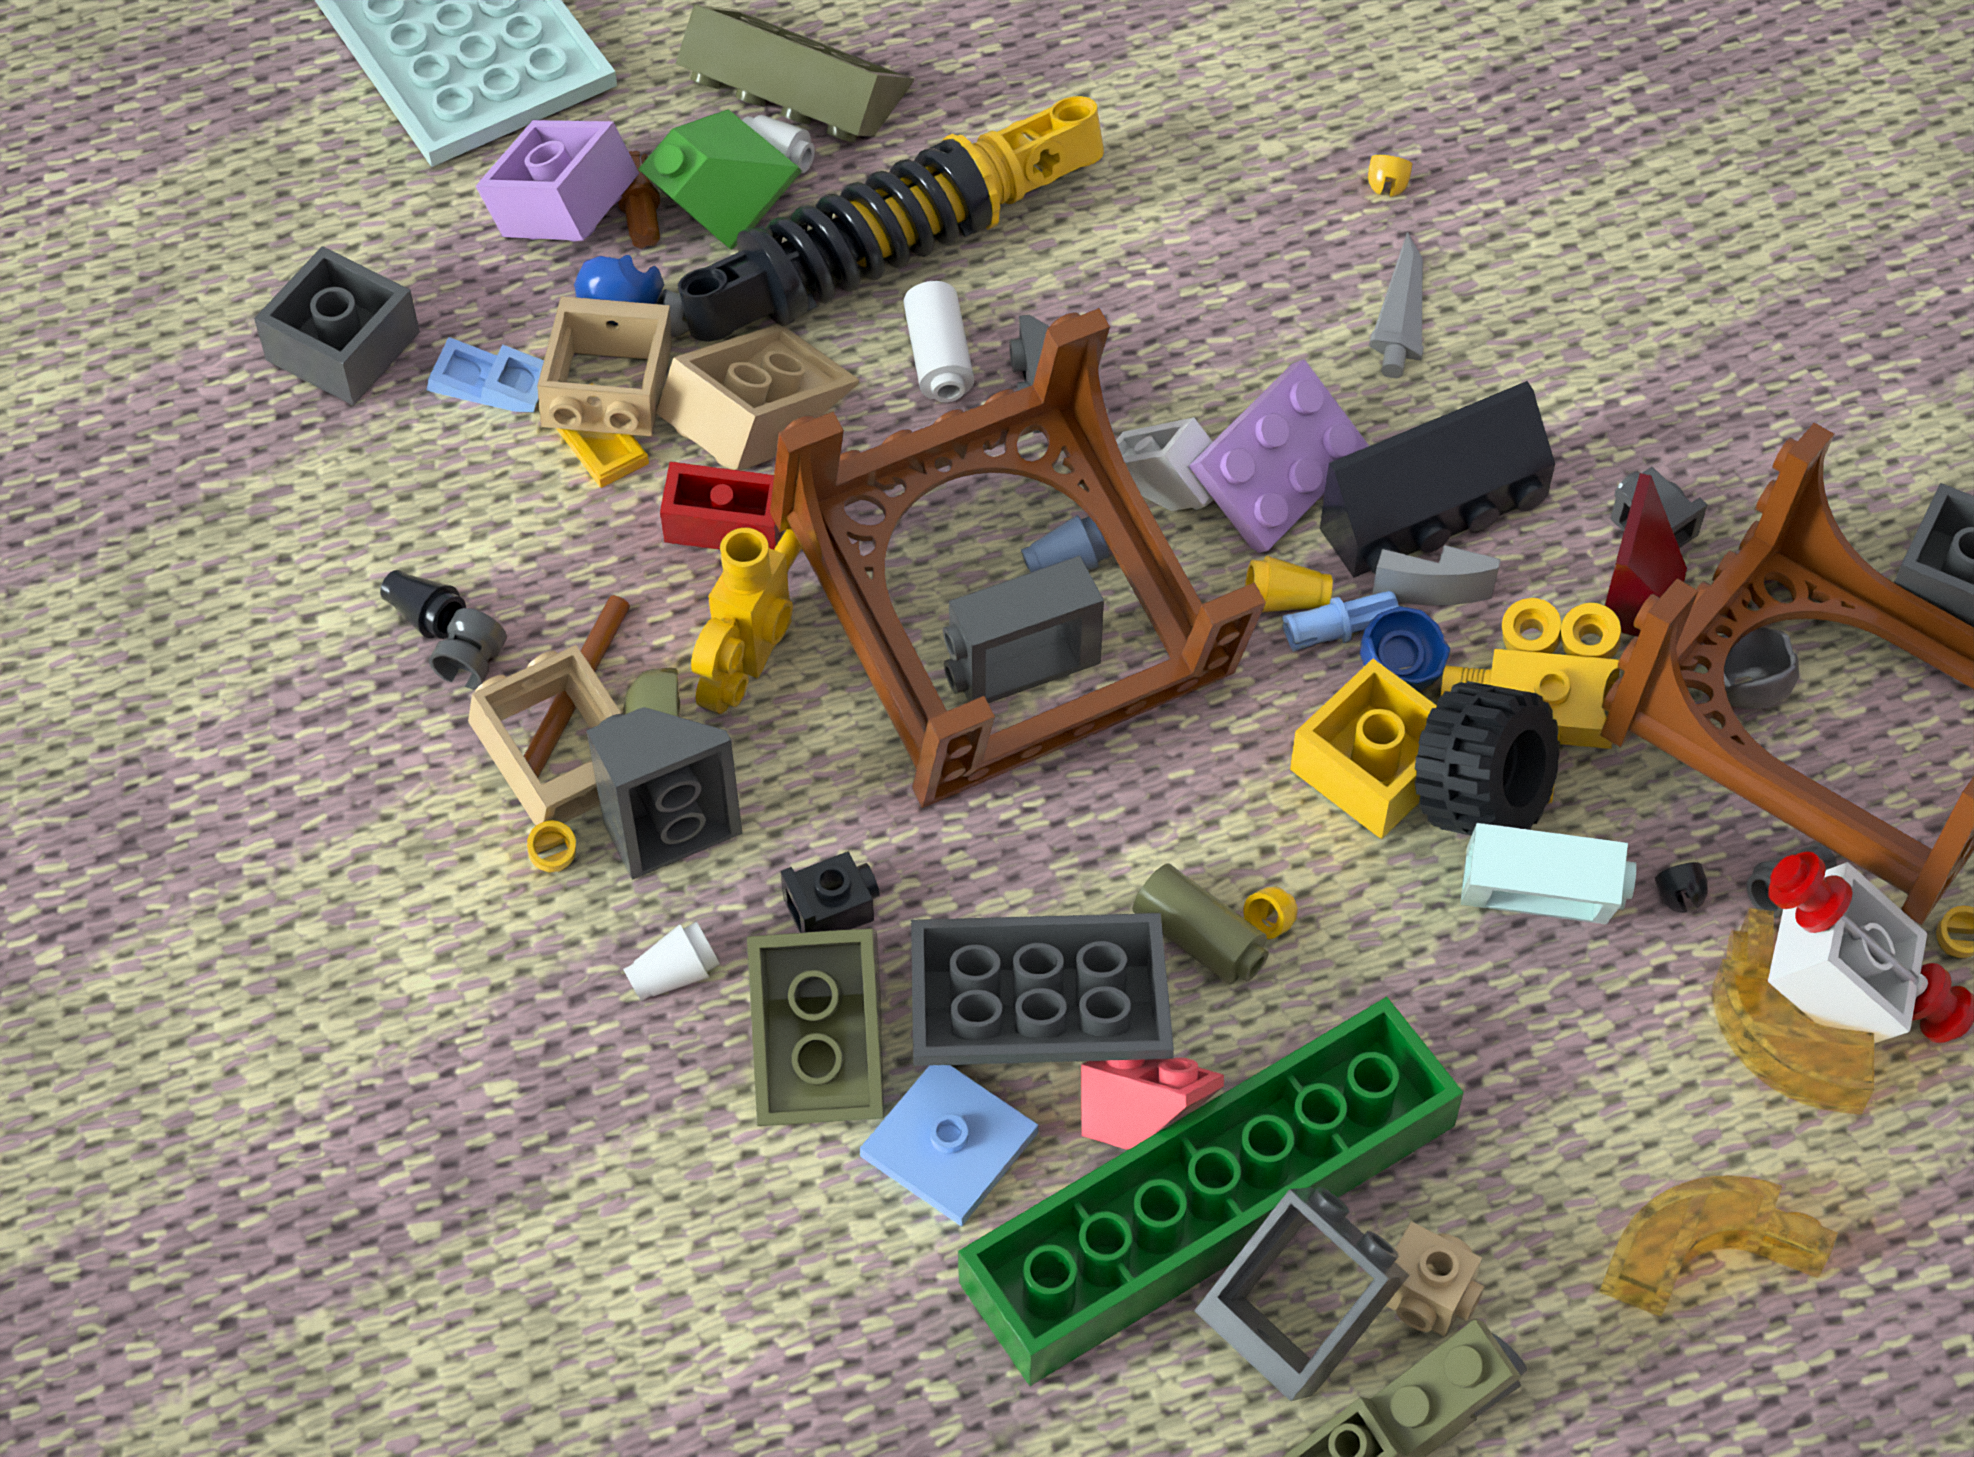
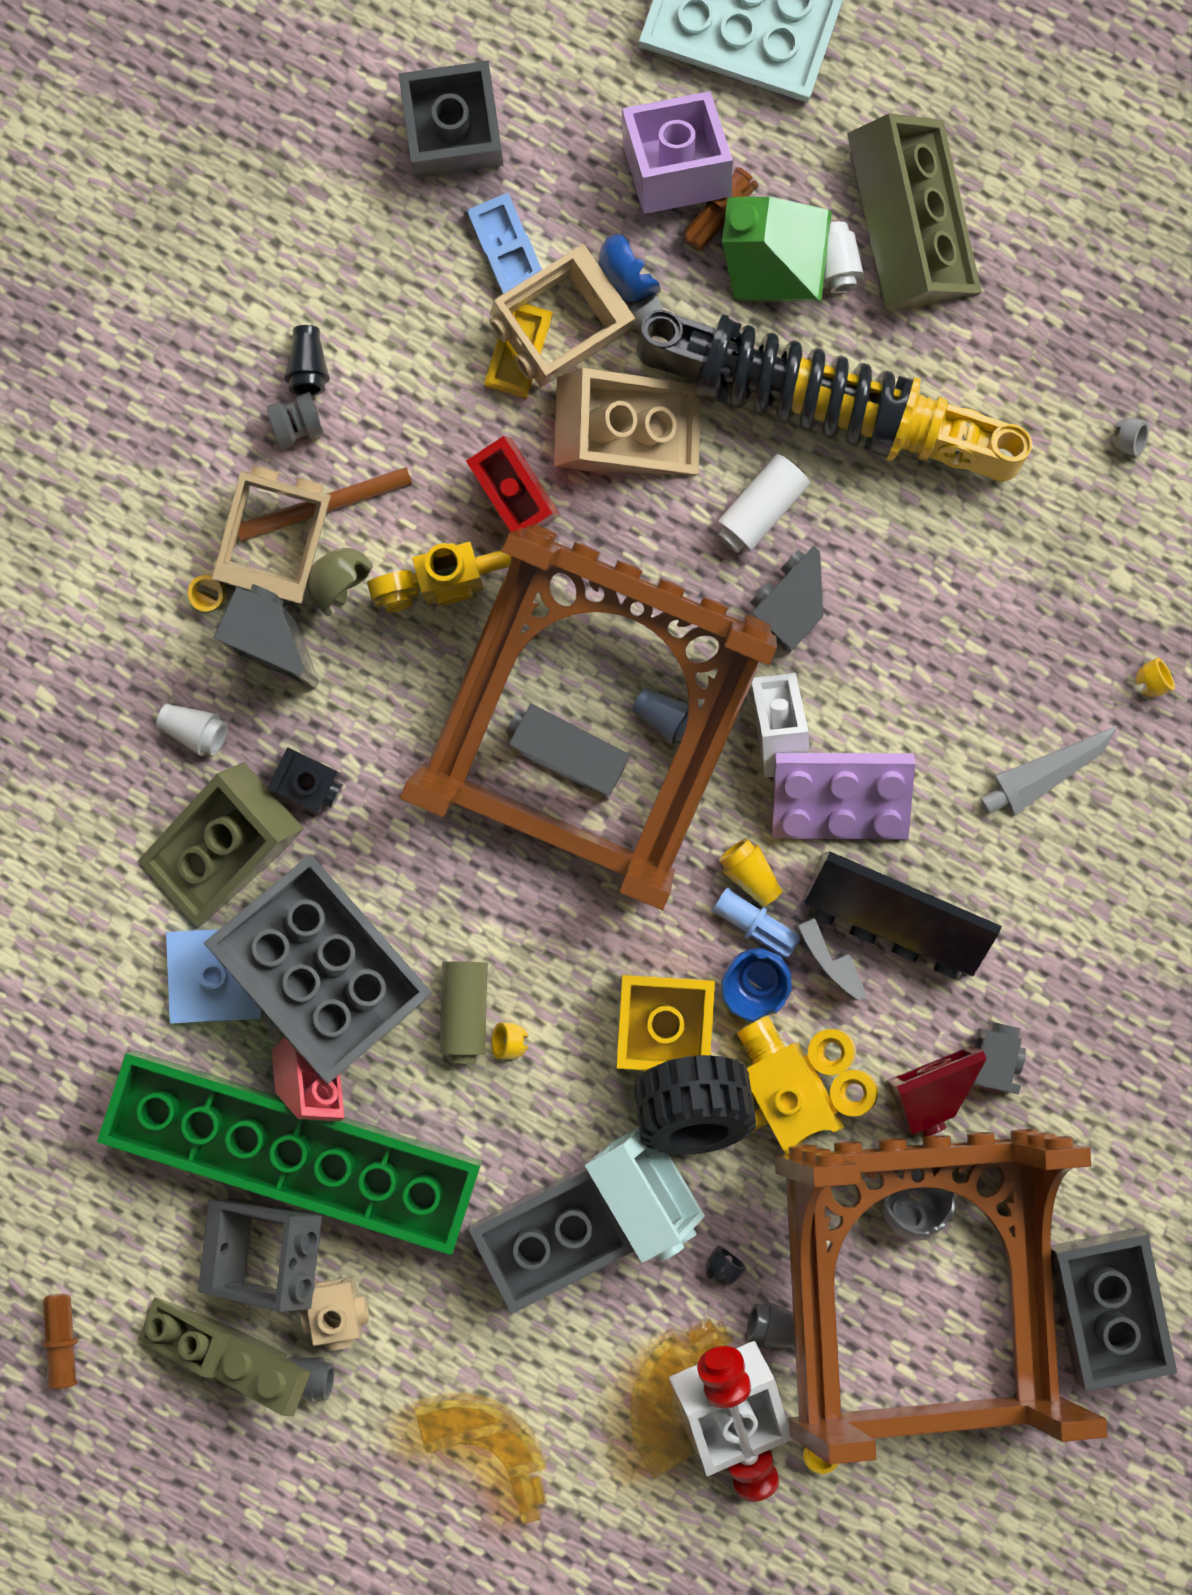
camera: 50 degrees right, 30 degrees up
(1147, 56) = (1132, 436): none -> light grey hinge
(1522, 1004) = (549, 1239): none -> dark grey brick

